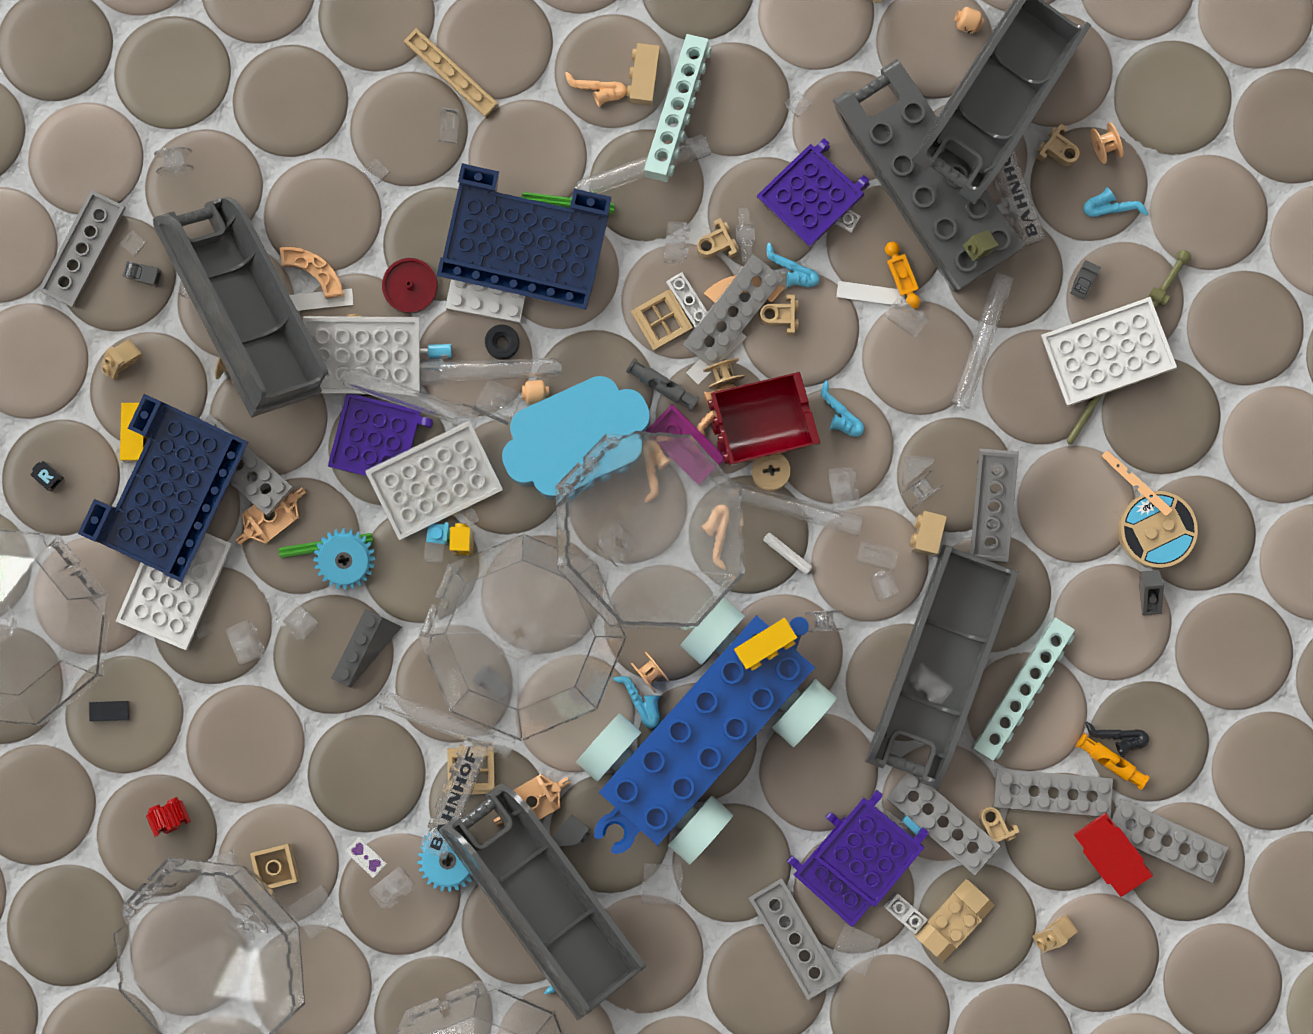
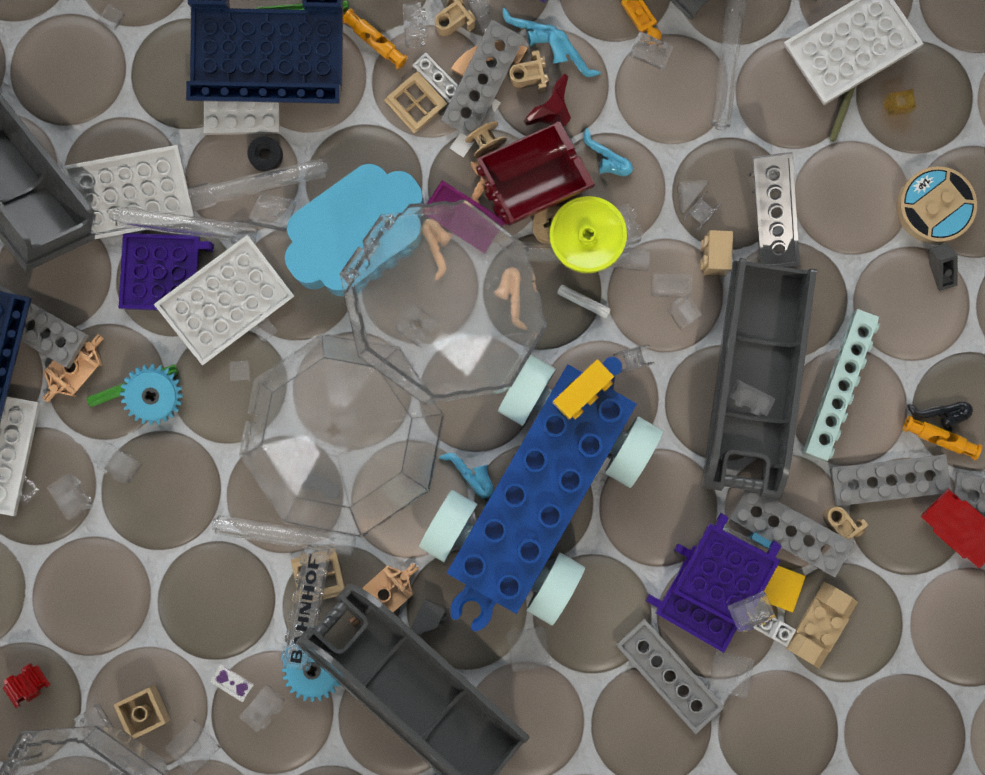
camera: 10 degrees left, 0 degrees up
(315, 266) = (68, 118): light nougat tile -> none
(317, 300) = (82, 150): white sticker -> none
(364, 646) = (188, 476): dark grey wedge -> none
(409, 285) = (165, 119): dark red piece -> none
(437, 351) = (204, 175): medium azure piece -> none
(439, 533) = (242, 350): medium azure bracket -> none
(461, 540) = (262, 351): yellow brick -> none
(534, 391) = (305, 193): light nougat head -> none
(632, 245) = (373, 37): none -> light orange piece
(650, 672) = (474, 443): light nougat piece -> none
(666, 387) = (436, 166): dark grey piece -> none
(799, 356) = (554, 109): none -> dark red piece
(804, 490) = (588, 234): none -> neon yellow dish
(818, 294) = (562, 46): none -> medium azure piece
(867, 293) = (607, 37): white sticker -> none
(885, 892) = (751, 612): none -> clear brick
(923, 876) = (784, 588): none -> yellow tile
(1055, 934) = (924, 619): tan pin -> none
(1134, 480) = (937, 180): light nougat piece -> none
(1143, 419) = (900, 102): none -> clear yellow window

